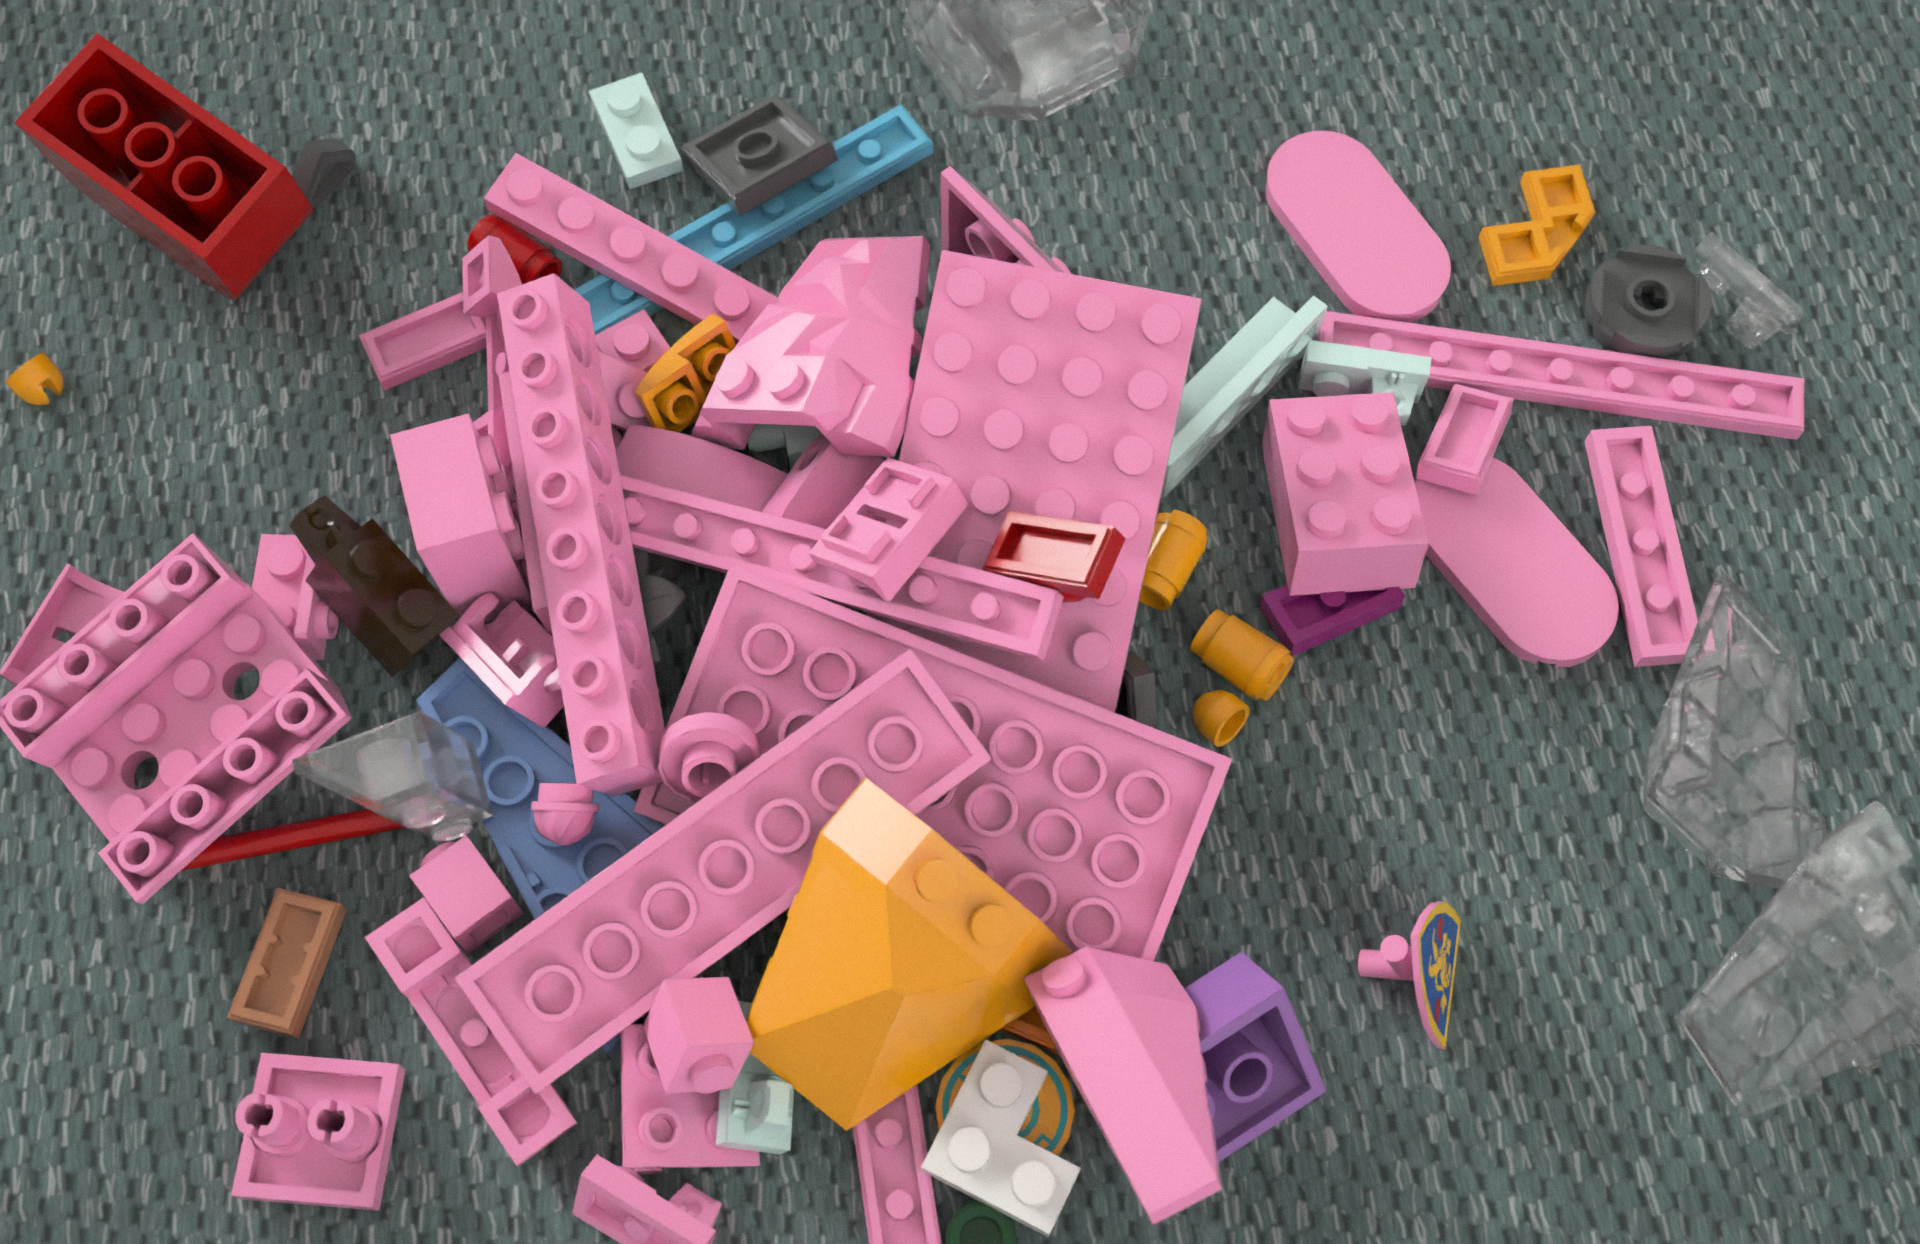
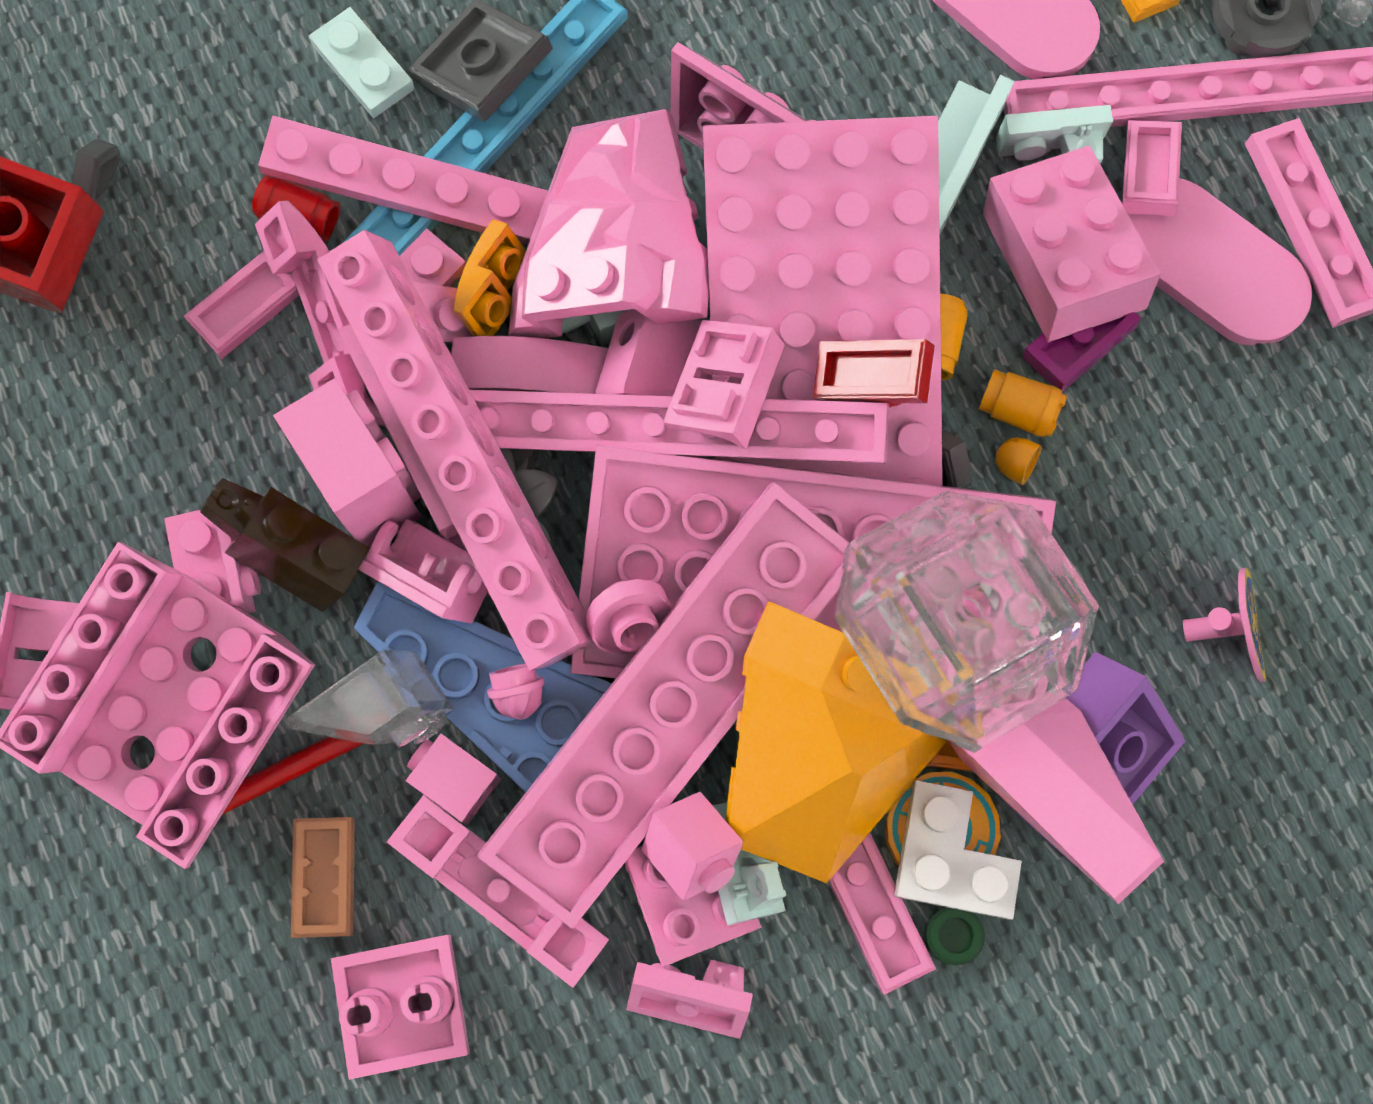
camera: 20 degrees left, 10 degrees up
(1068, 915) = (933, 657): none -> clear piece

